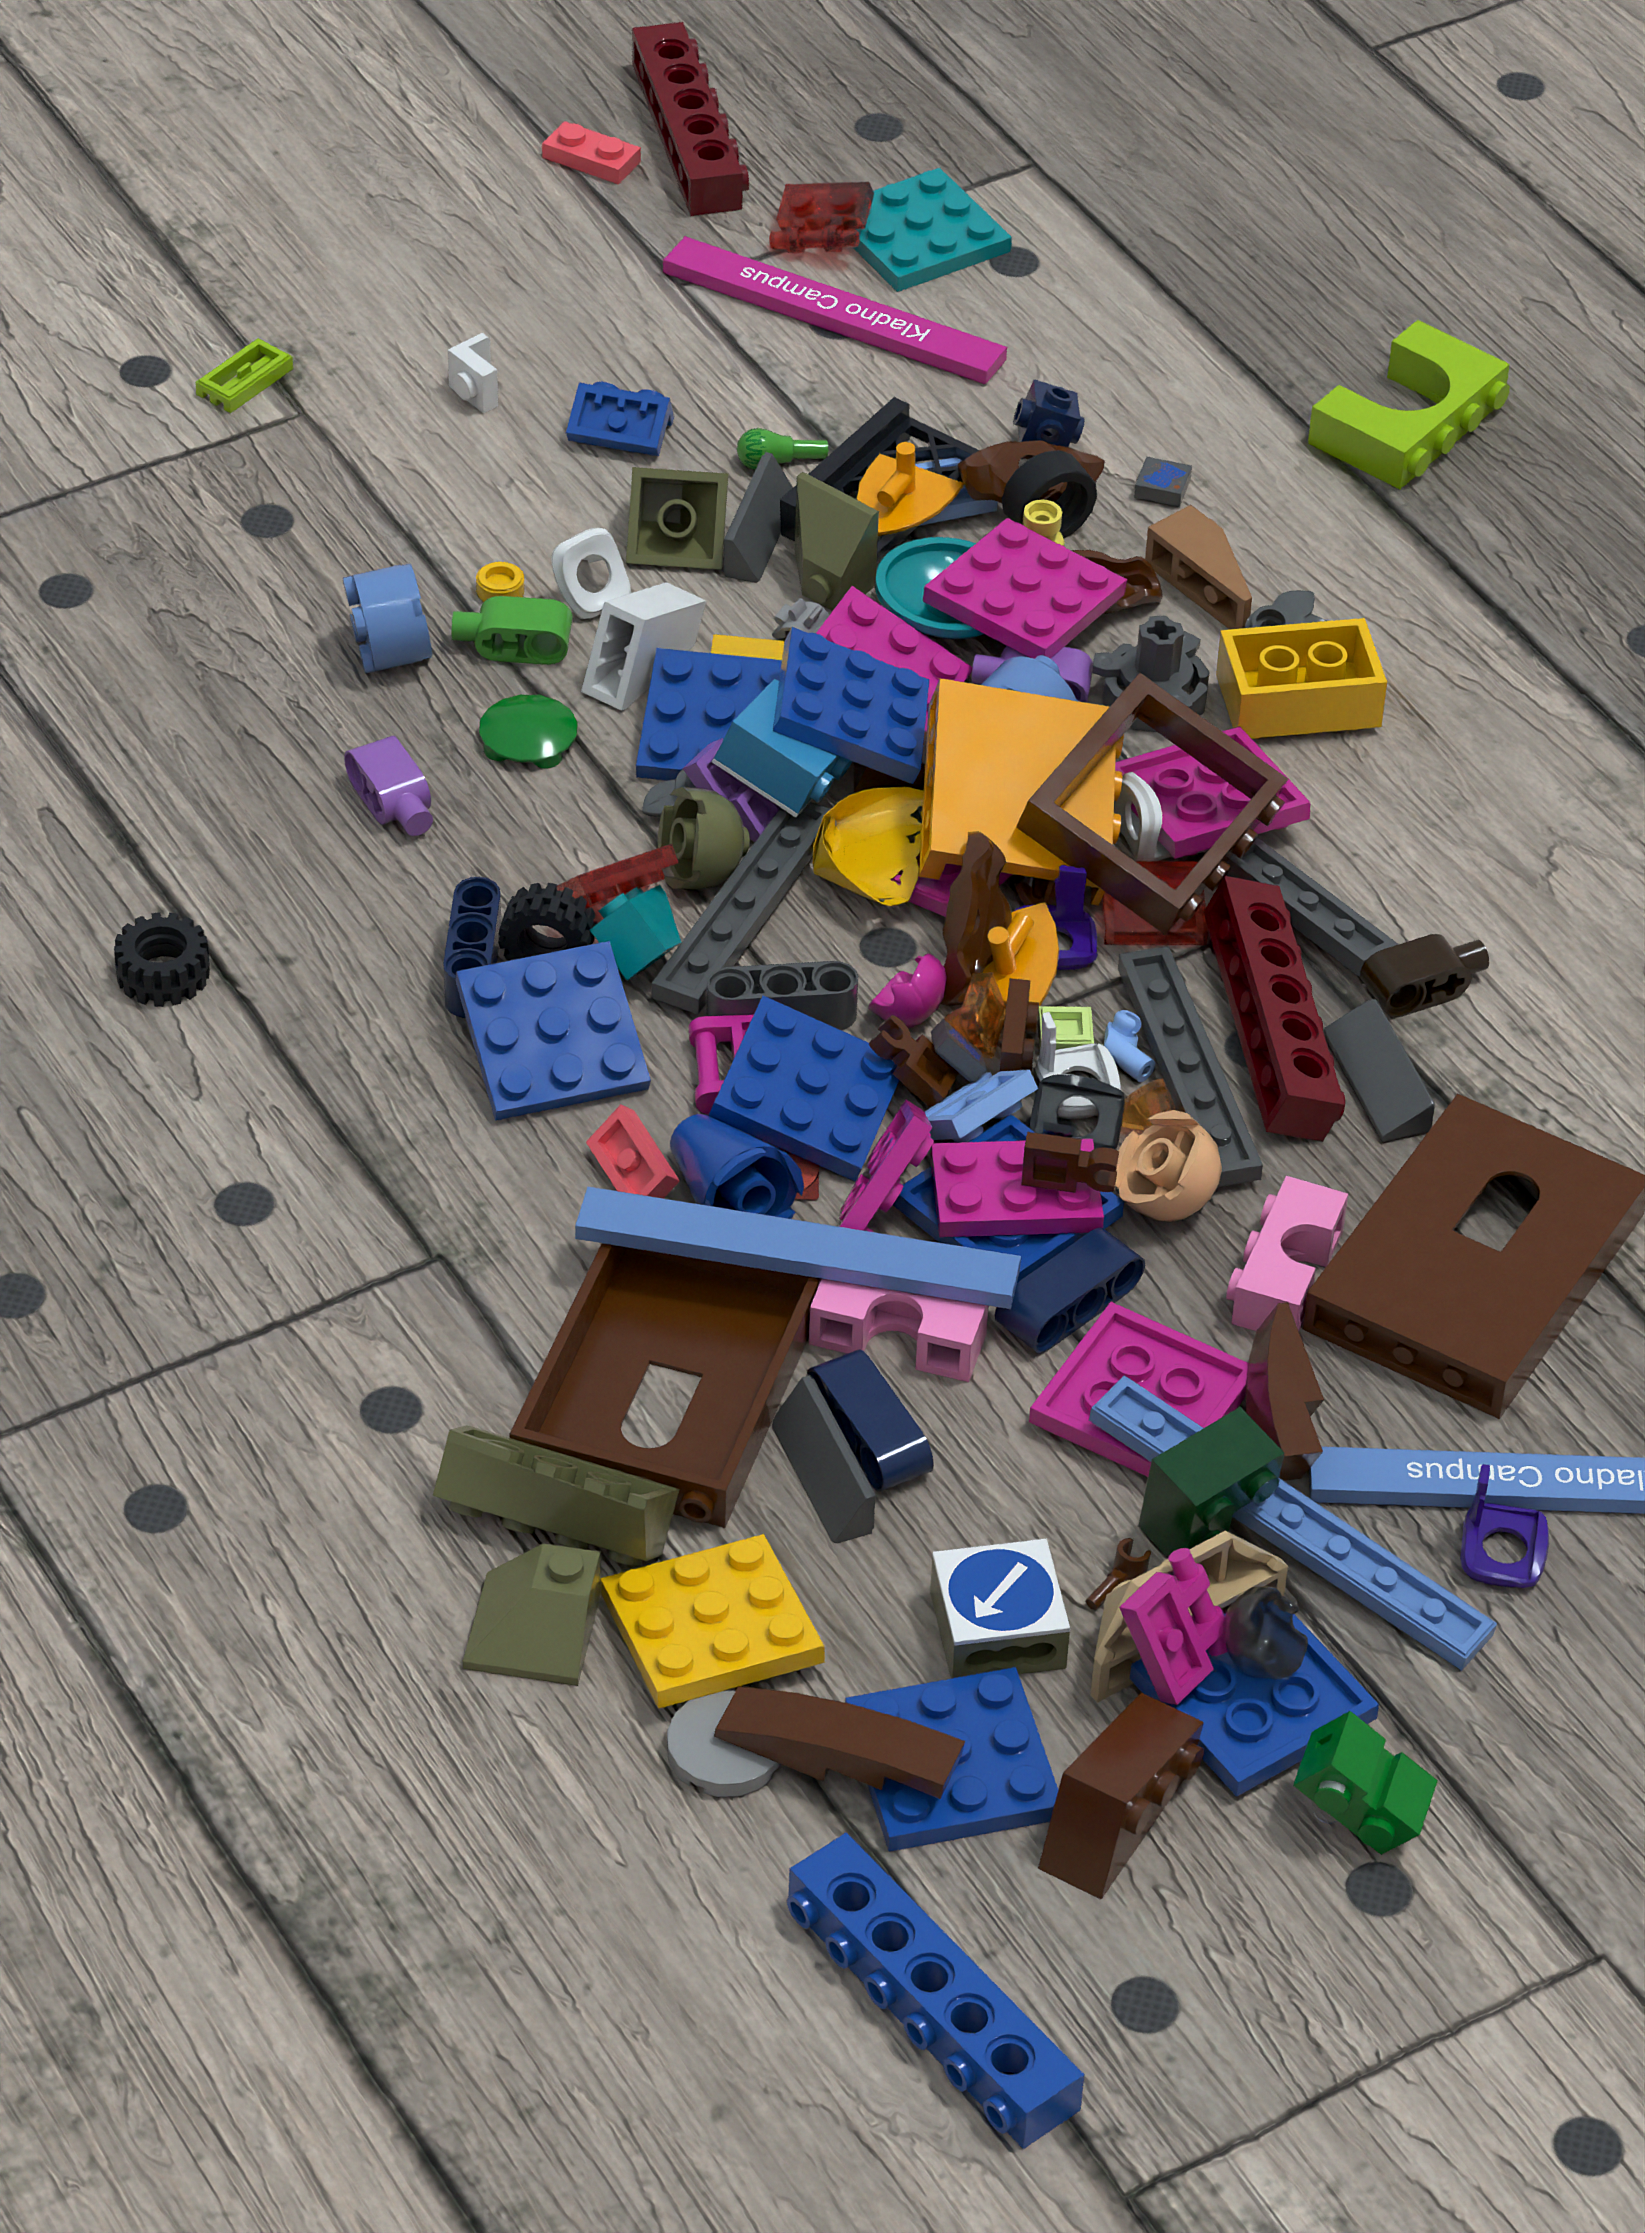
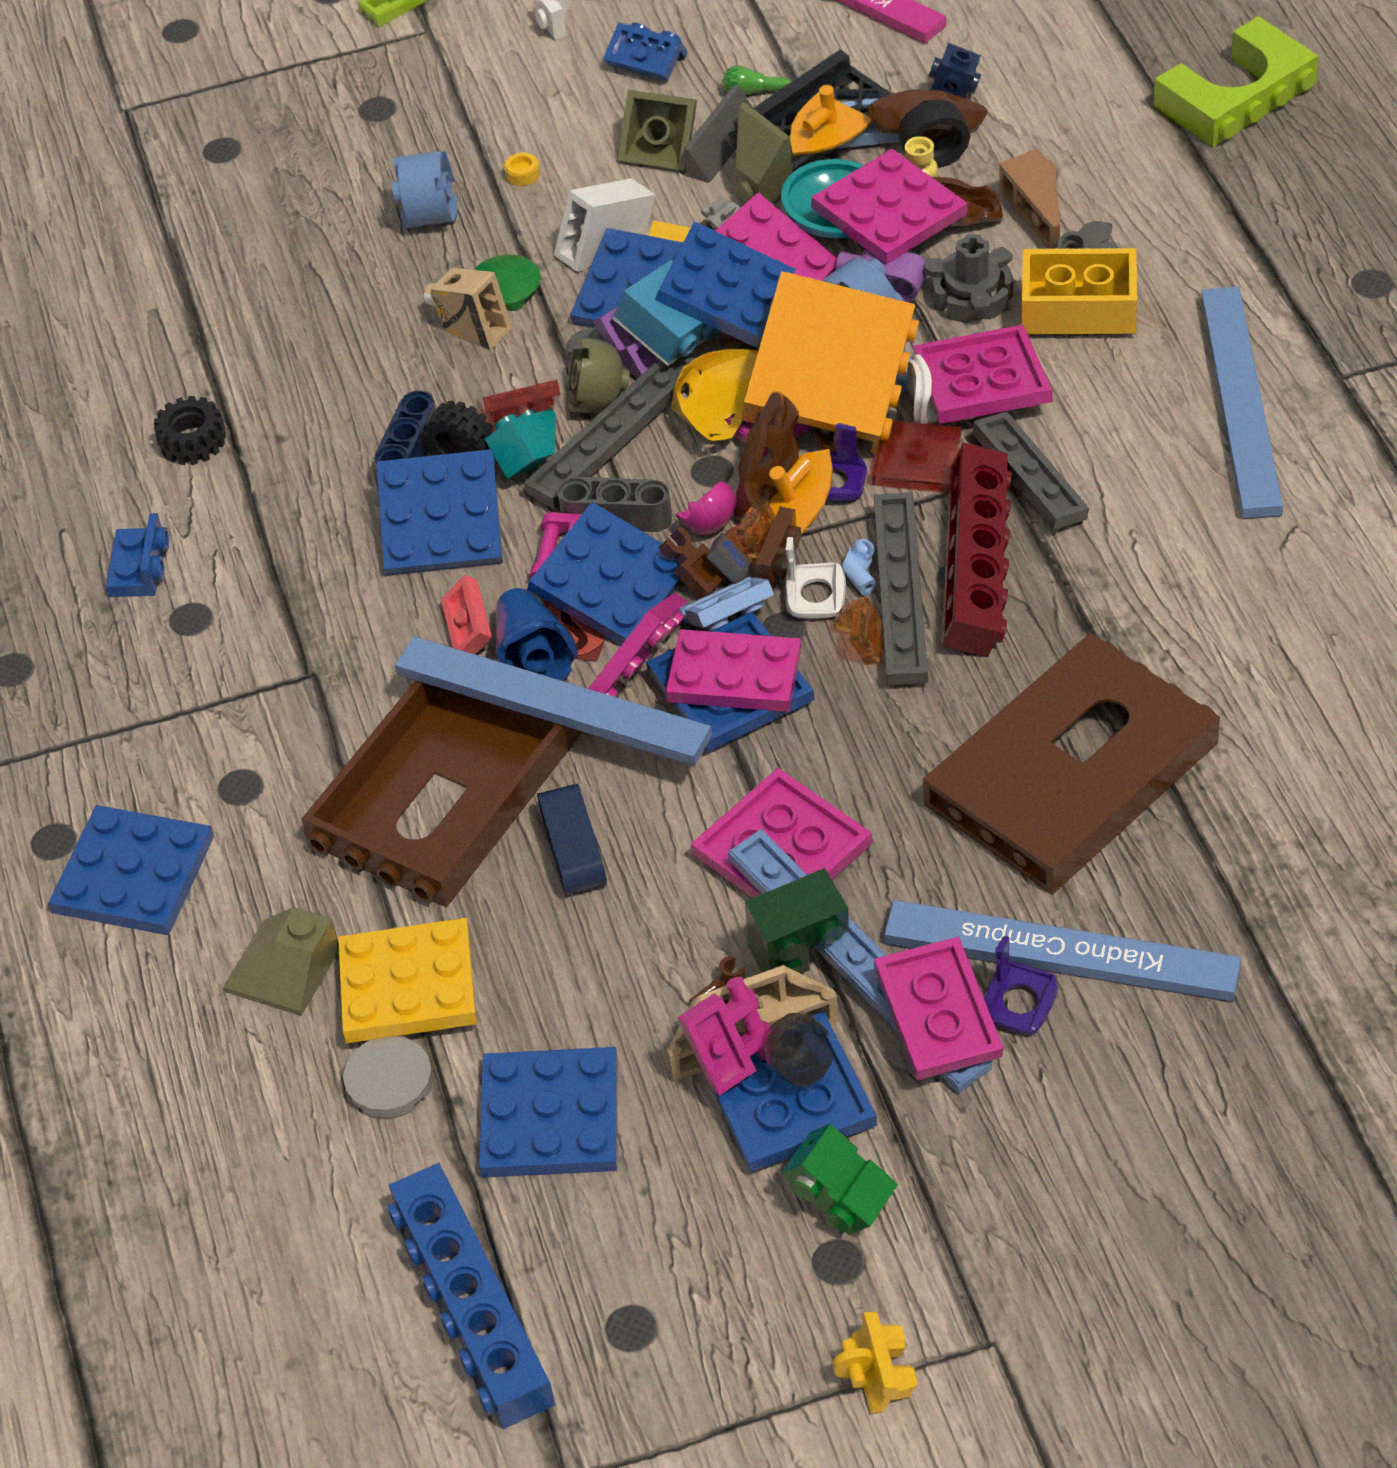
camera: 20 degrees right, 5 degrees up
(146, 1134) = (138, 560): none -> blue bracket
(282, 1530) = (131, 870): none -> blue plate
(390, 784) = (391, 314): medium lavender piece -> none
(500, 763) = (470, 306): none -> tan torso
(516, 629) = (518, 205): bright green piece -> none
(556, 1494) = (322, 869): olive wedge -> none
(594, 546) = (583, 143): white piece -> none
(825, 1463) = (528, 869): dark grey slope -> none
(839, 1736) = (461, 1088): reddish brown slope -> none
(945, 1329) = (647, 778): bright pink arch -> none
(1000, 1608) = (616, 1000): piece -> none
(1059, 1087) = (791, 595): black piece -> none
(1060, 1164) = (759, 658): reddish brown plate -> none
(1071, 1289) = (753, 754): dark blue beam -> none
(1072, 1025) = (819, 547): yellowish green tile -> none
(1110, 867) = (912, 463): reddish brown window -> none
(1118, 1792) = (656, 1156): reddish brown wedge -> none
(1163, 481) = (1031, 128): dark grey tile -> none
(1168, 1167) = (851, 668): light nougat cylinder -> none
(1284, 1391) = (878, 863): reddish brown slope -> none
(1297, 1227) = (937, 723): bright pink arch -> none
(1380, 1072) = (1044, 608): dark grey slope -> none
(1418, 1564) = (938, 1008): none -> dark pink plate
(1422, 973) = (1101, 532): dark brown piece -> none
(1470, 1993) = (869, 1364): none -> yellow hips
(1541, 800) = (1241, 403): none -> medium blue tile

